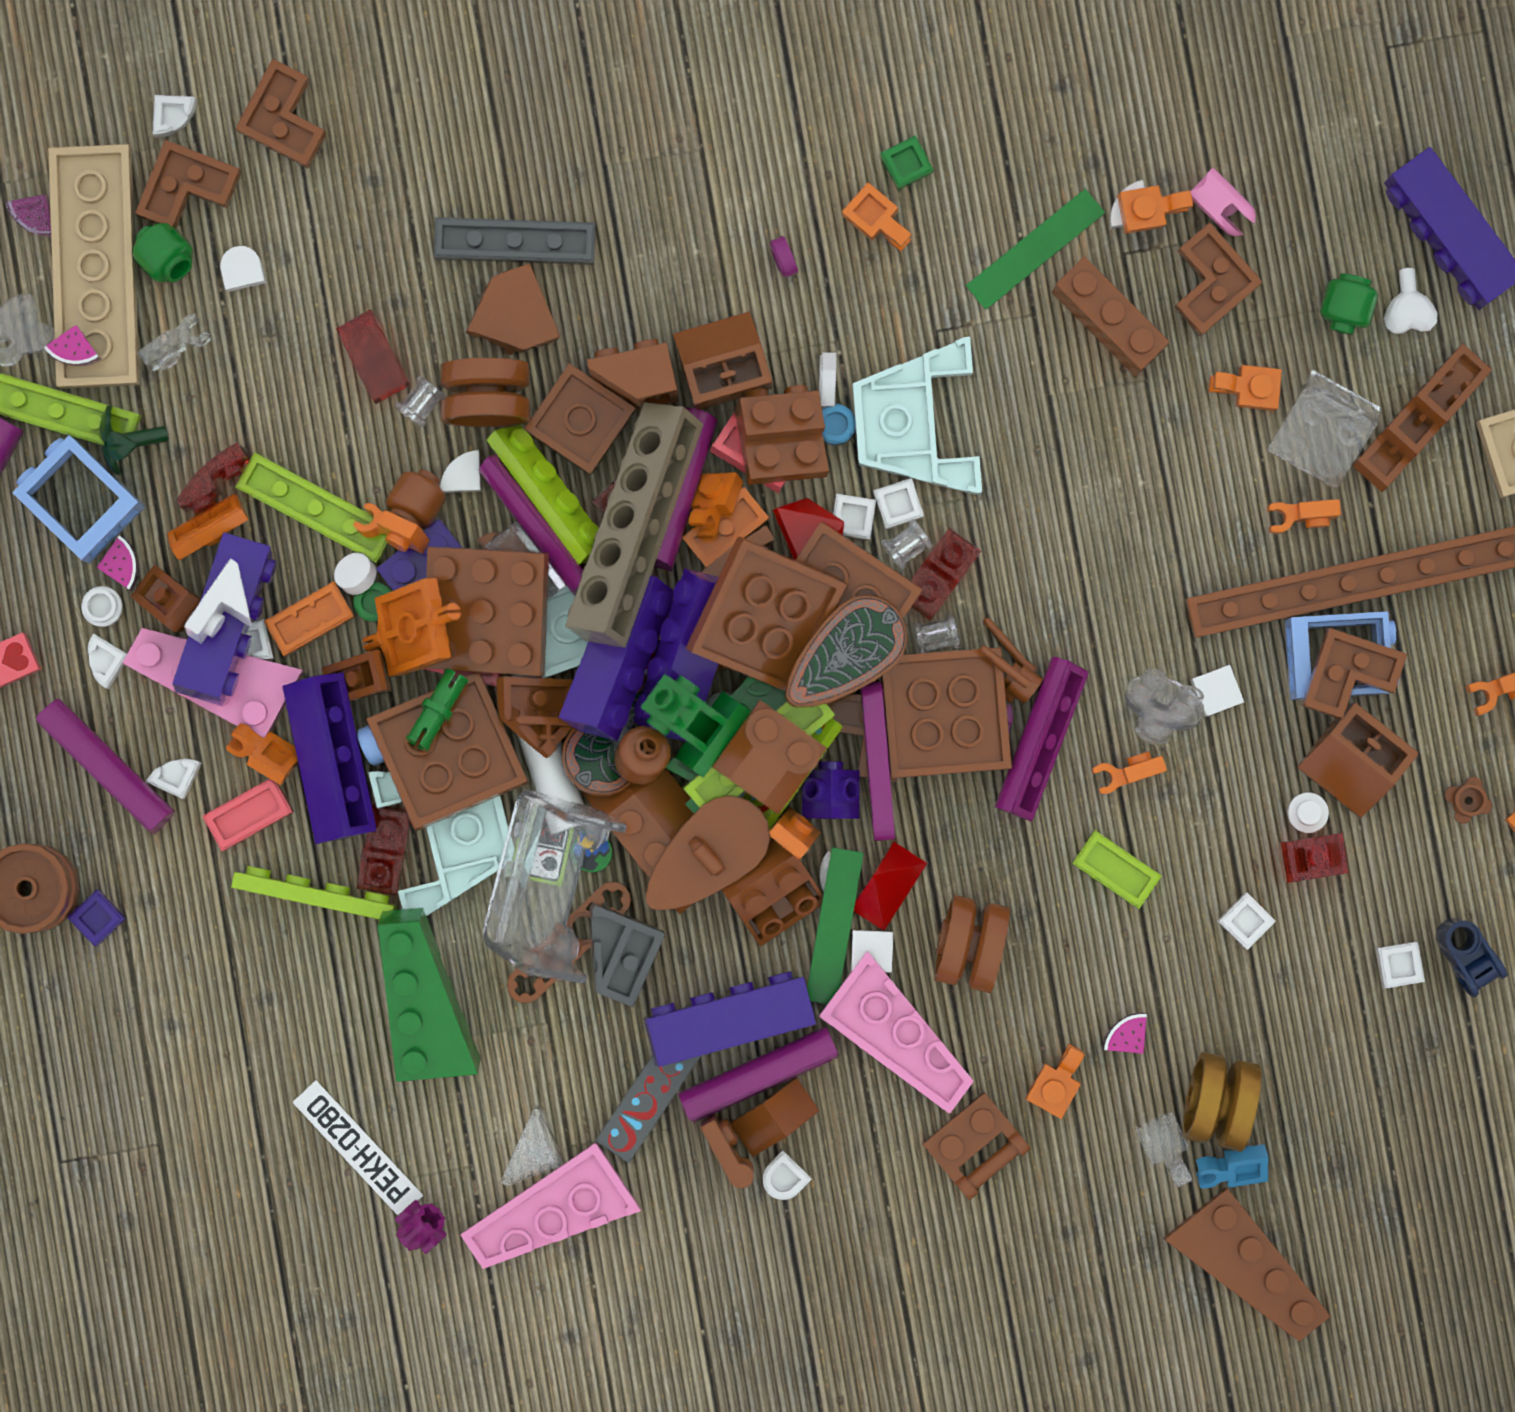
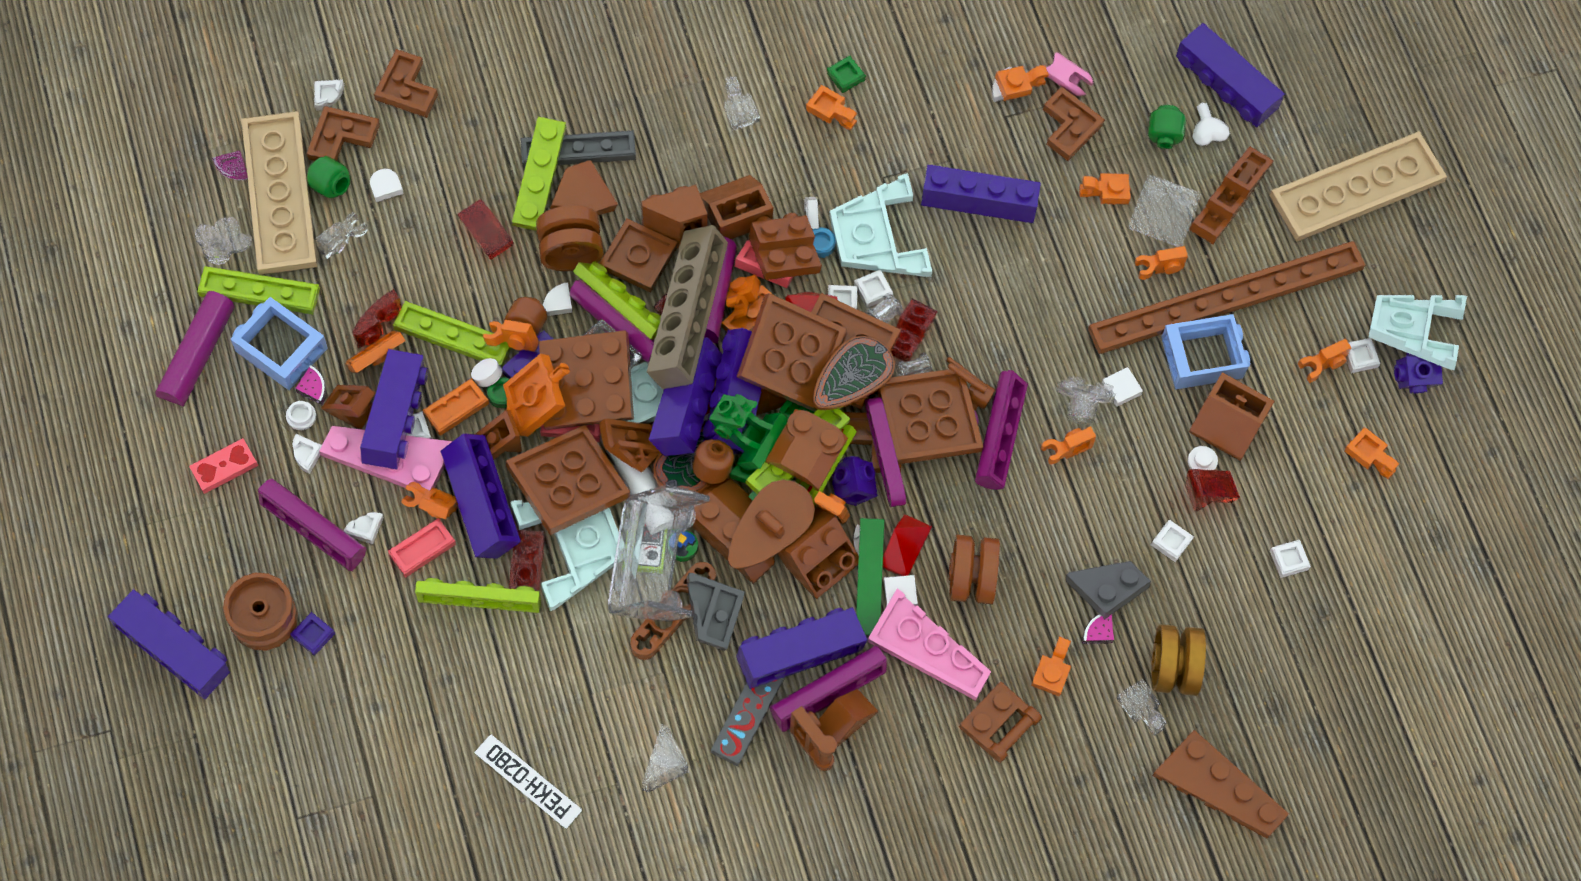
camera: 10 degrees left, 20 degrees down
(73, 349) = (268, 242): dark pink tile -> none
(120, 445) = (308, 297): dark green plant -> none
(224, 595) = (392, 386): white slope -> none
(369, 746) = (510, 486): light blue tile -> none
(420, 401) = (522, 255): clear bush -> none
(420, 1226) = (583, 827): magenta gear -> none
(423, 1012) = (569, 662): green wedge -> none
(436, 709) = (557, 447): green pin -> none
(455, 279) = (539, 172): none -> lime plate
(562, 1204) = (687, 802): bright pink wing -> none
(750, 202) = (739, 107): none -> clear plate
(783, 257) = (769, 137): magenta tile -> none
(784, 1177) = (858, 762): white tile -> none
(1035, 249) = (943, 119): green sticker -> none
(1068, 380) = (980, 193): none -> dark purple brick
(1110, 316) = (1002, 149): dark orange brick -> none
(1116, 869) = (1071, 516): lime tile -> none
(1150, 977) = (1109, 586): none -> dark grey wing
(1235, 1168) = (1200, 713): dark azure plate -> none
(1347, 660) = (1214, 344): dark orange plate -> none
(1475, 961) = (1341, 544): dark blue piece -> none
(1479, 803) = (1319, 432): dark orange plate -> none

